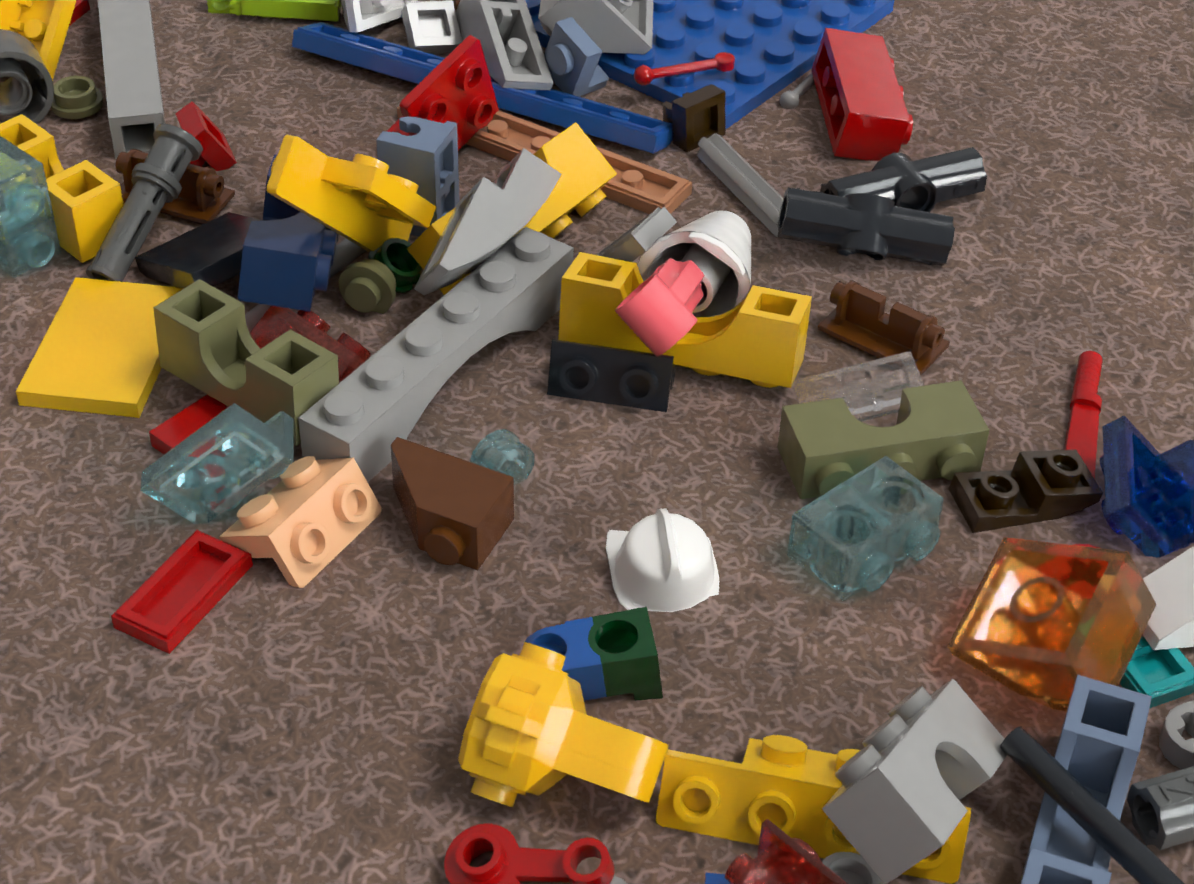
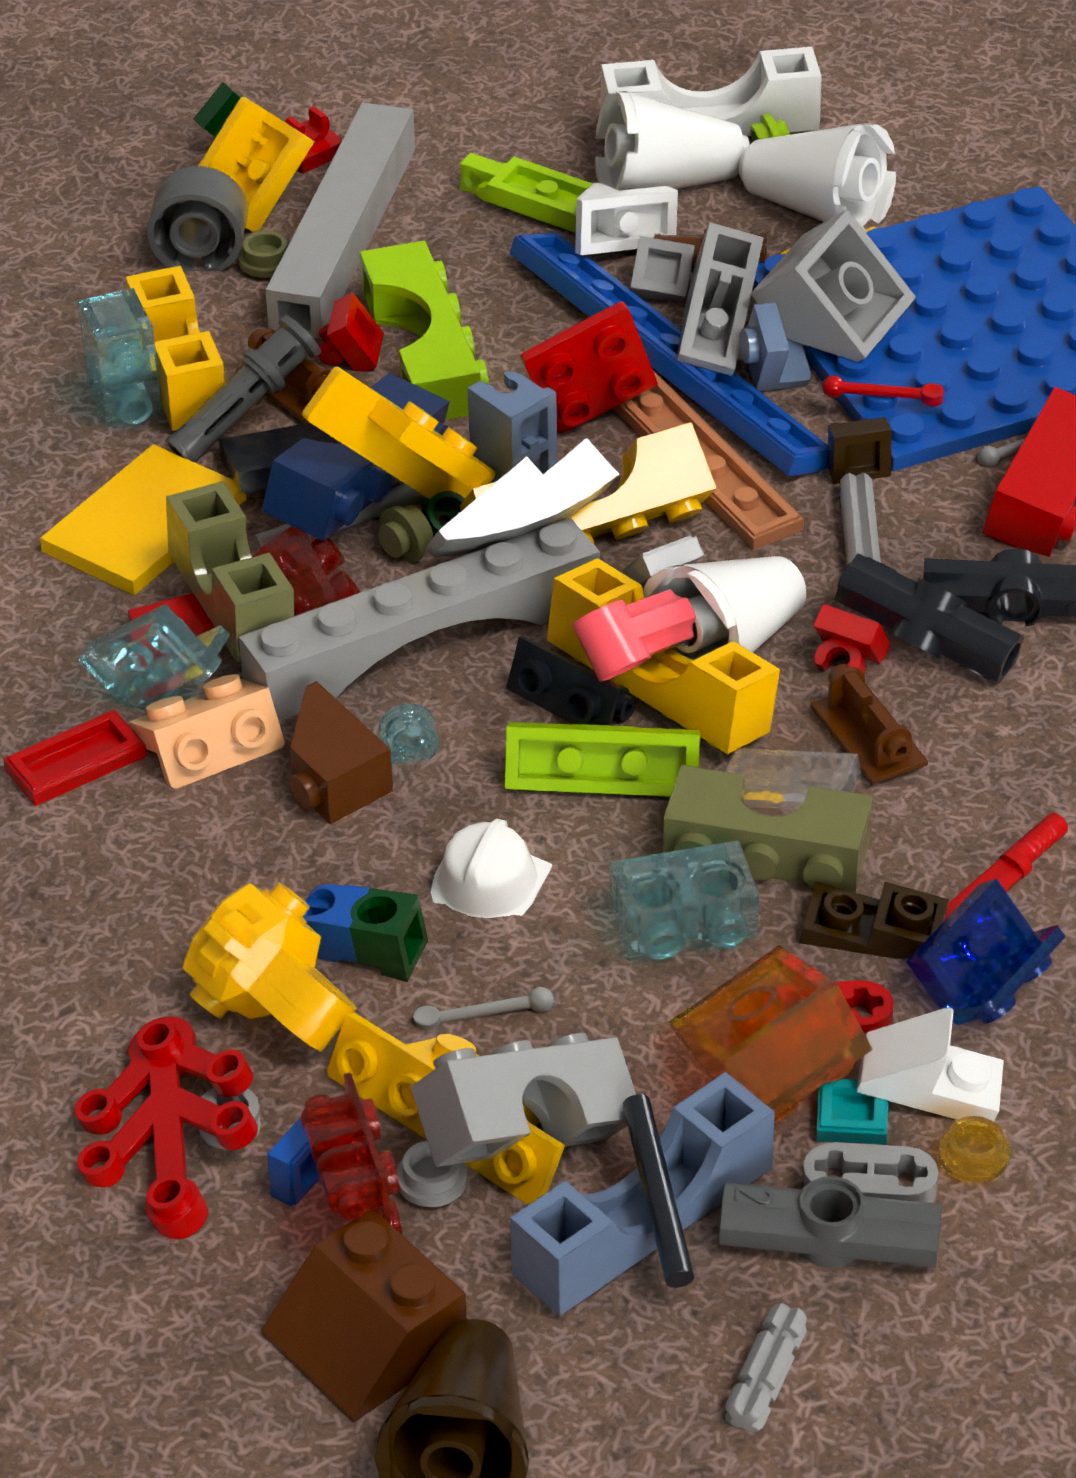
camera: 30 degrees right, 0 degrees up
(241, 96) = (410, 293): none -> lime arch
(691, 426) = (597, 758): none -> lime plate
(712, 726) = (538, 1000): none -> light grey hinge
(813, 259) = (849, 636): none -> red tile

